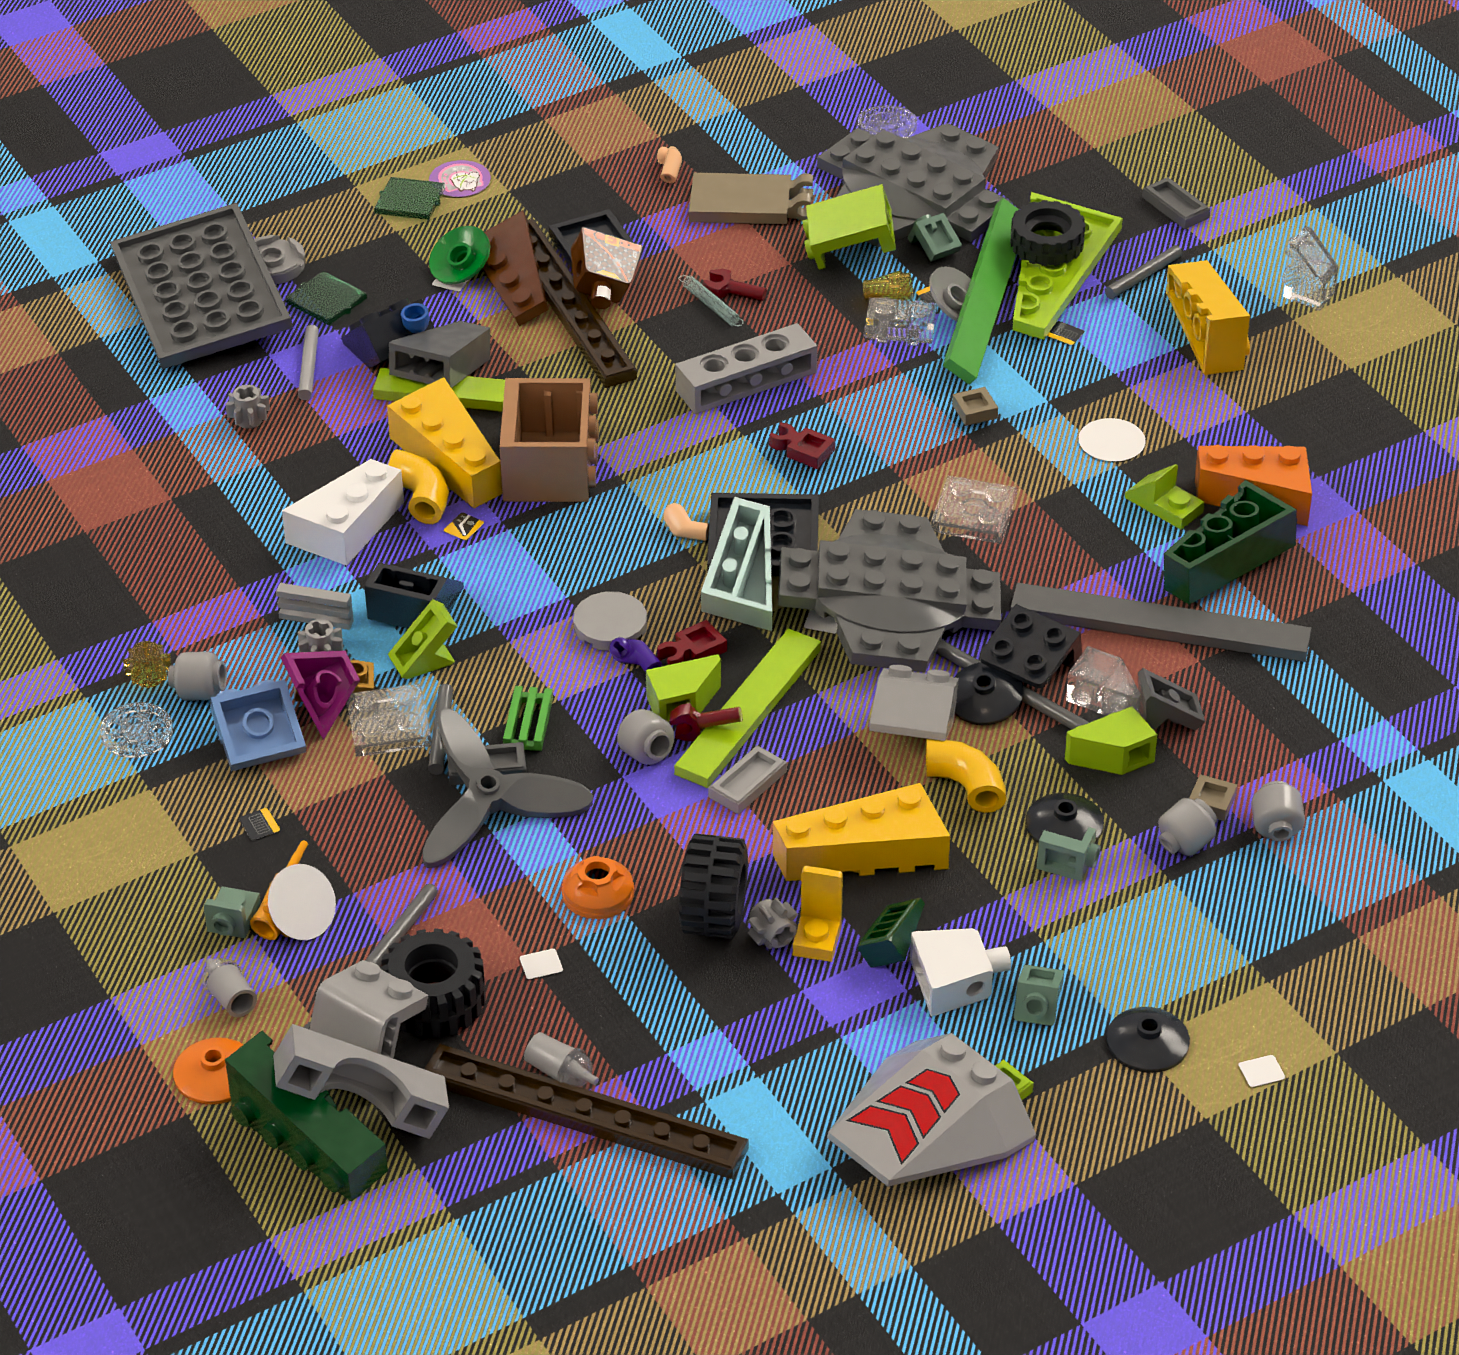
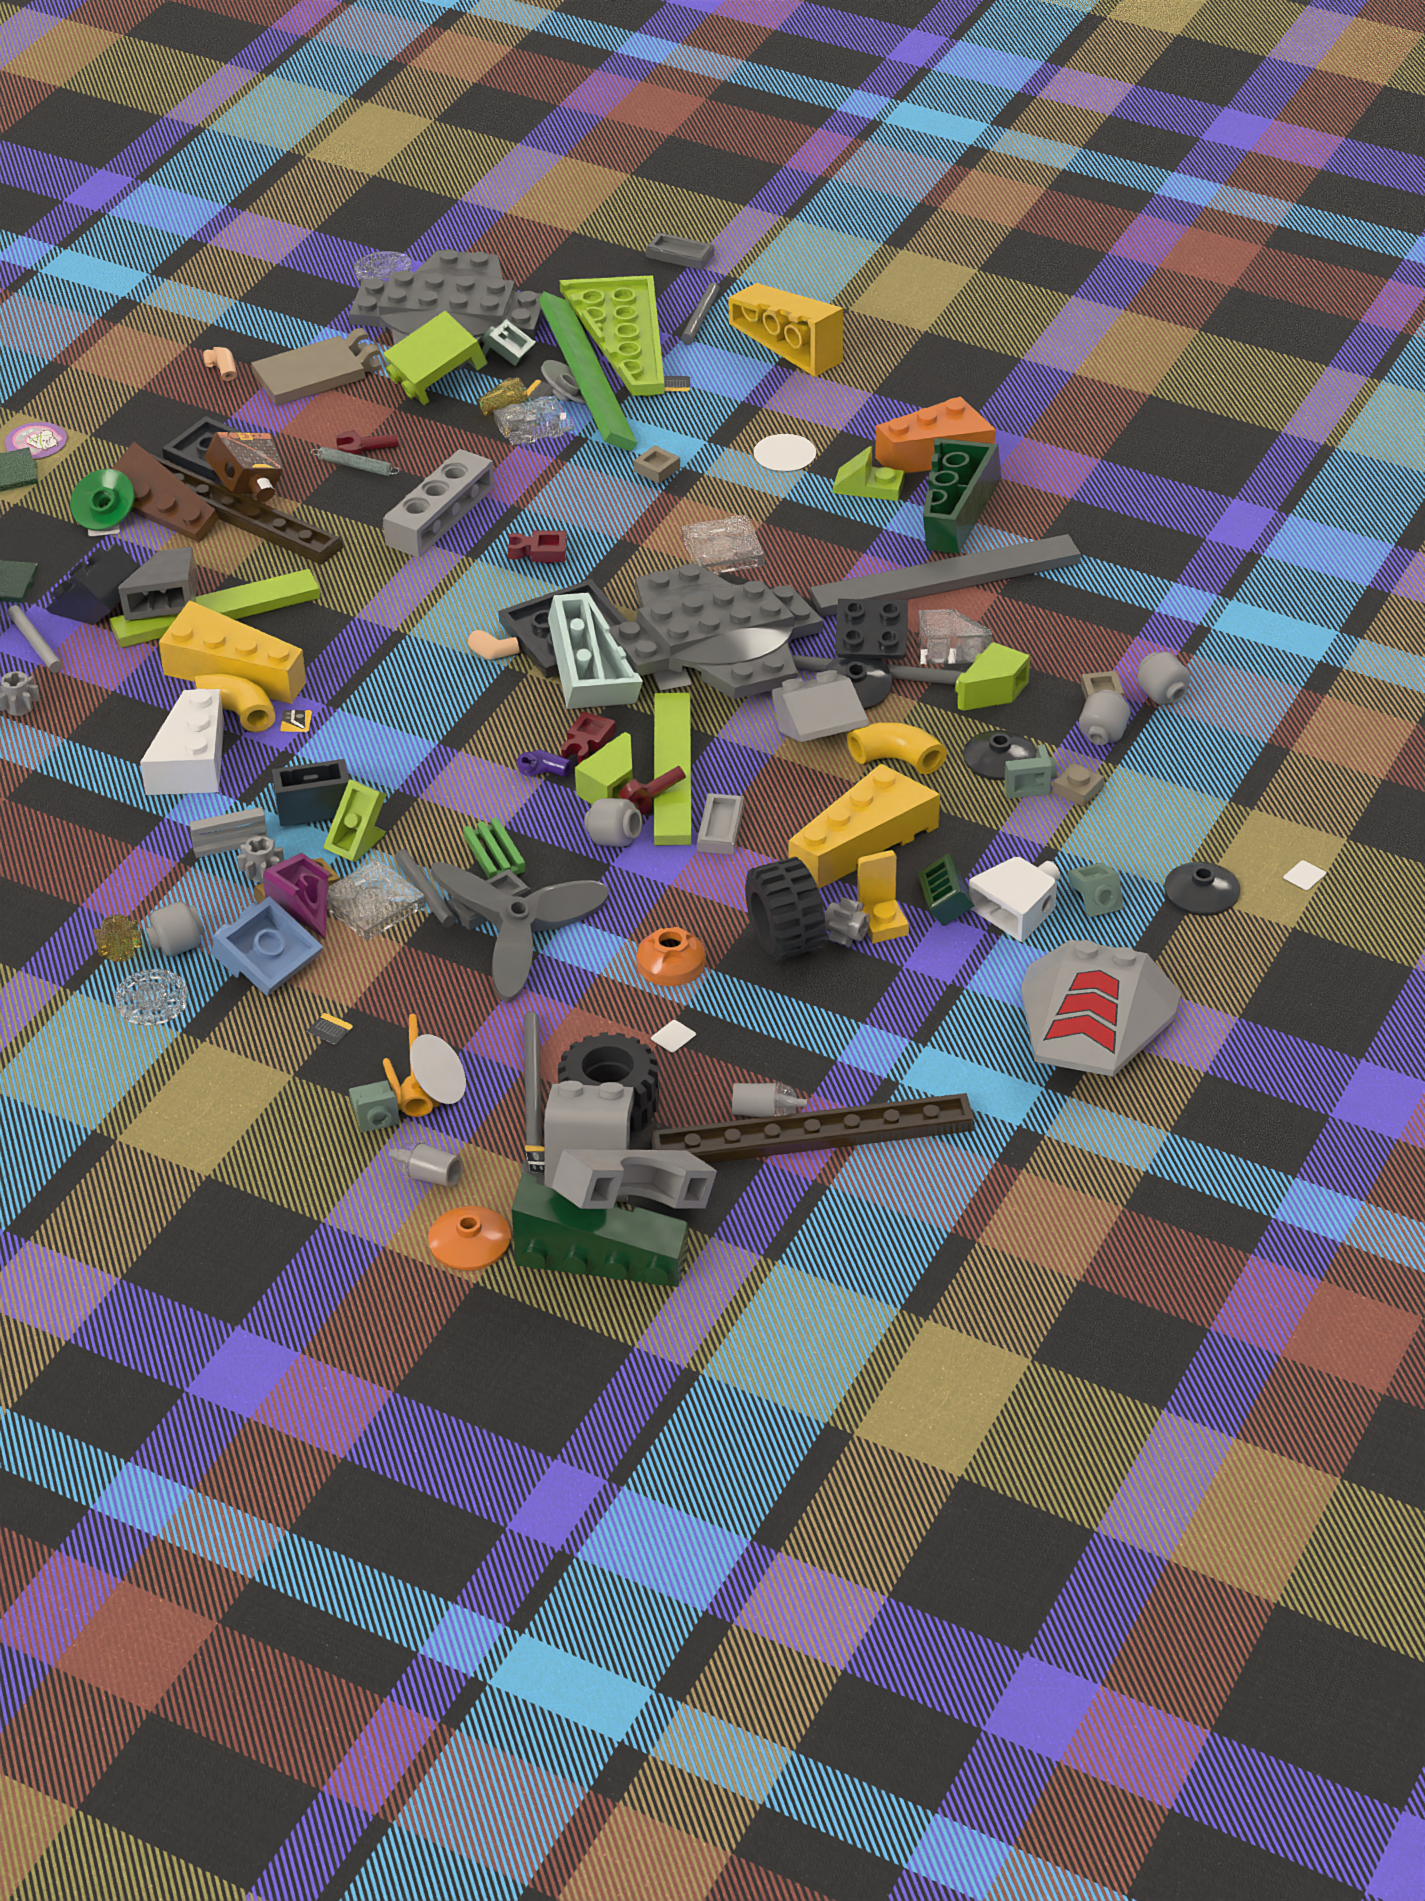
camera: 30 degrees left, 0 degrees up
(415, 317) = (120, 562): blue hinge -> none
(548, 440) = (328, 616): medium nougat container -> none
(607, 617) = (494, 745): light grey tile -> none
(1047, 249) = (608, 291): black tyre -> none
(1112, 883) = (1078, 784): none -> dark tan plate
(1166, 700) = (1011, 629): dark grey slope -> none
(1310, 270) = (843, 265): clear slope -> none

